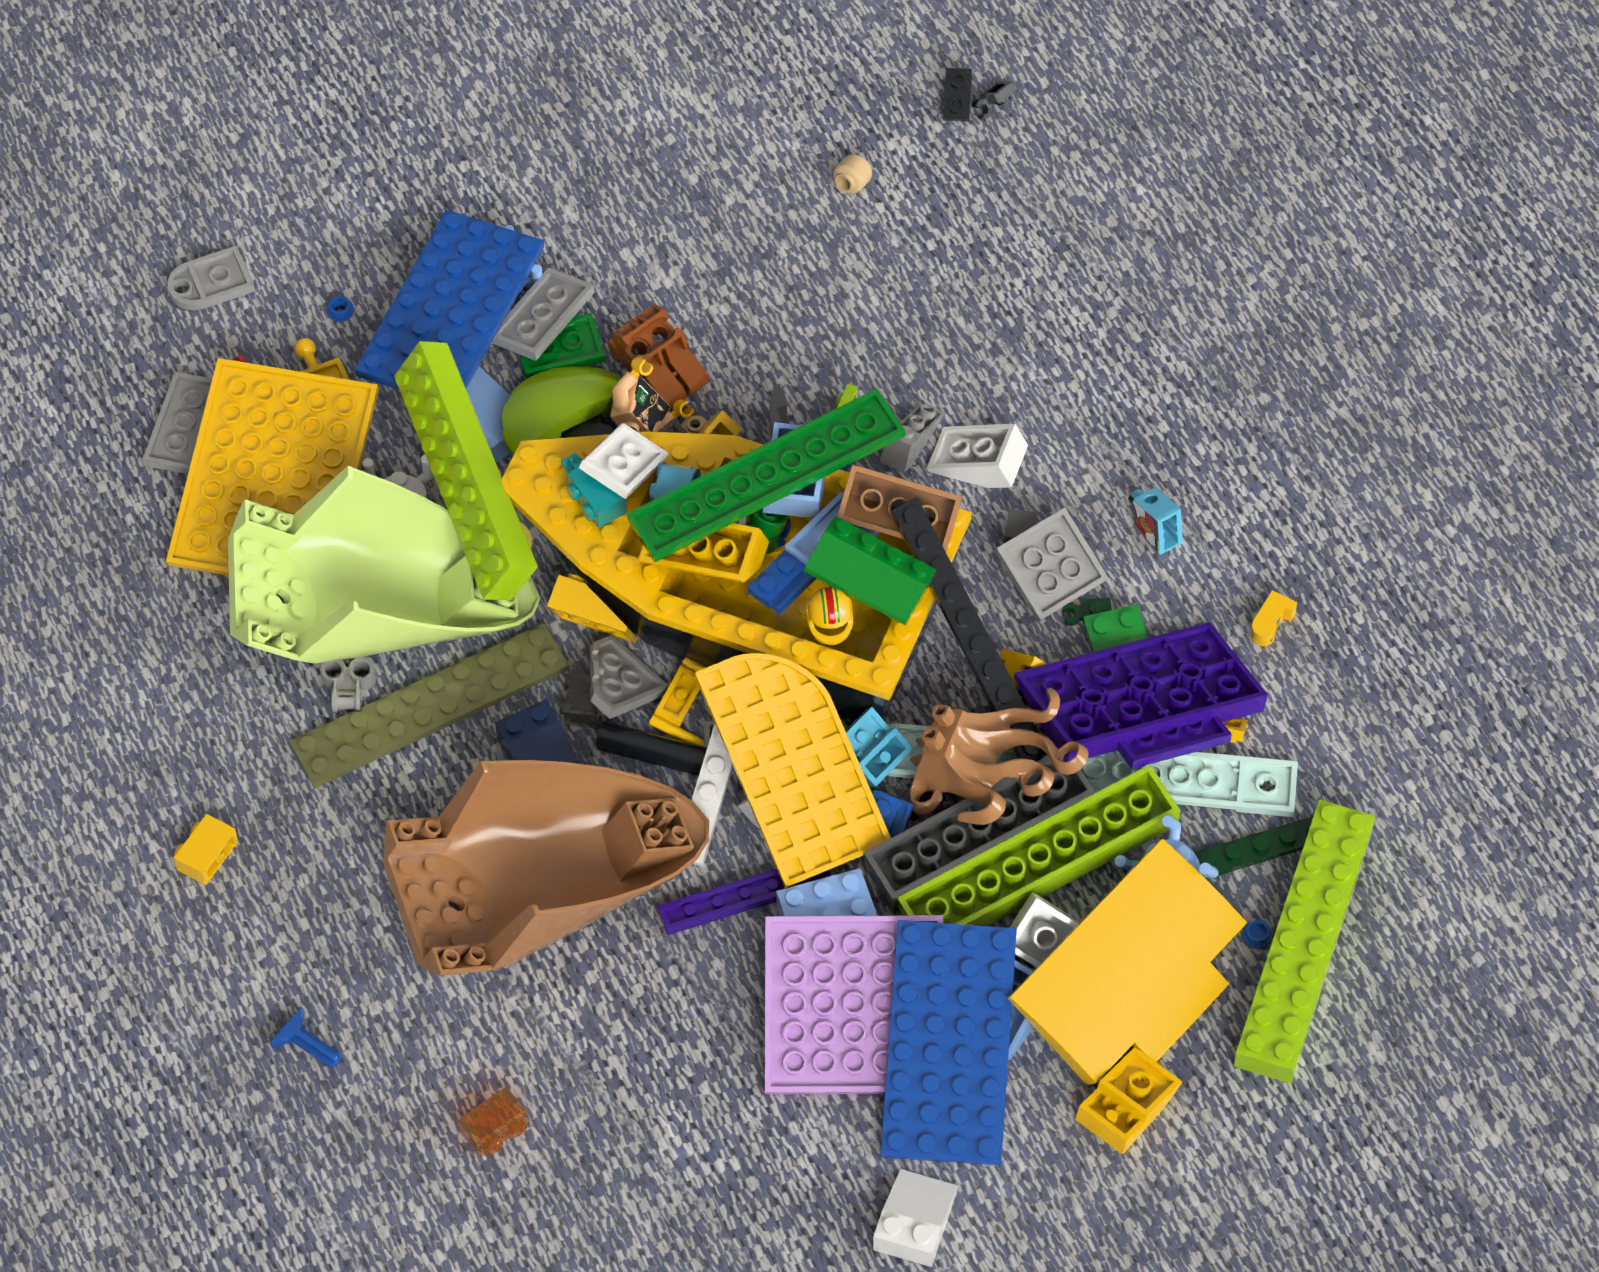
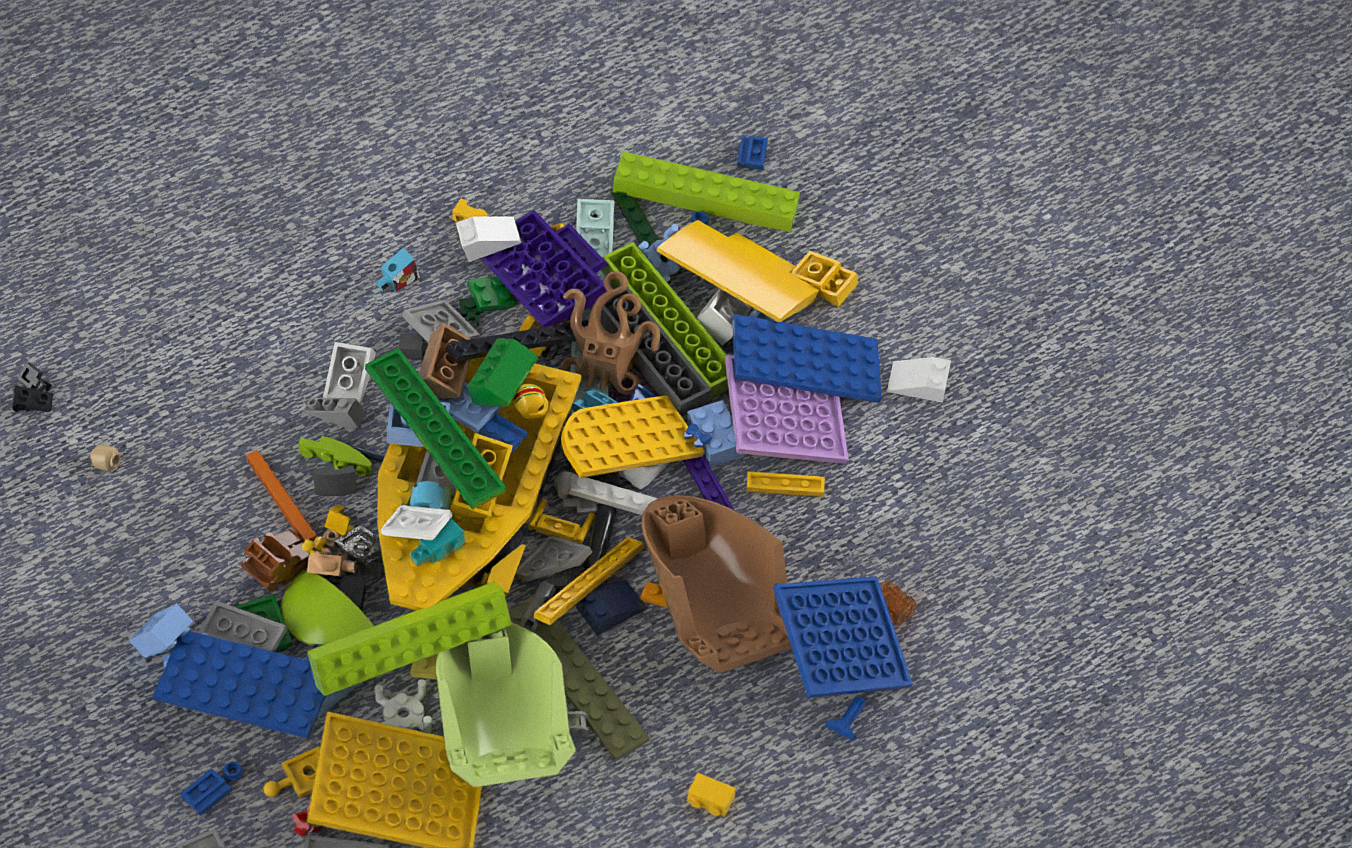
camera: 100 degrees left, 5 degrees down
(312, 279) = (206, 792): none -> blue plate
(416, 1023) = (842, 636): none -> blue plate
(531, 649) = (541, 596): none -> dark grey piece
(542, 218) = (161, 631): none -> light blue brick
(555, 703) = (588, 580): none -> yellow tile
(729, 1001) = (785, 484): none -> yellow plate
(768, 370) = (280, 496): none -> orange piece
(815, 868) = (702, 438): none -> blue piece
(1220, 630) = (487, 235): none -> white slope
(1398, 1022) = (752, 152): none -> blue plate

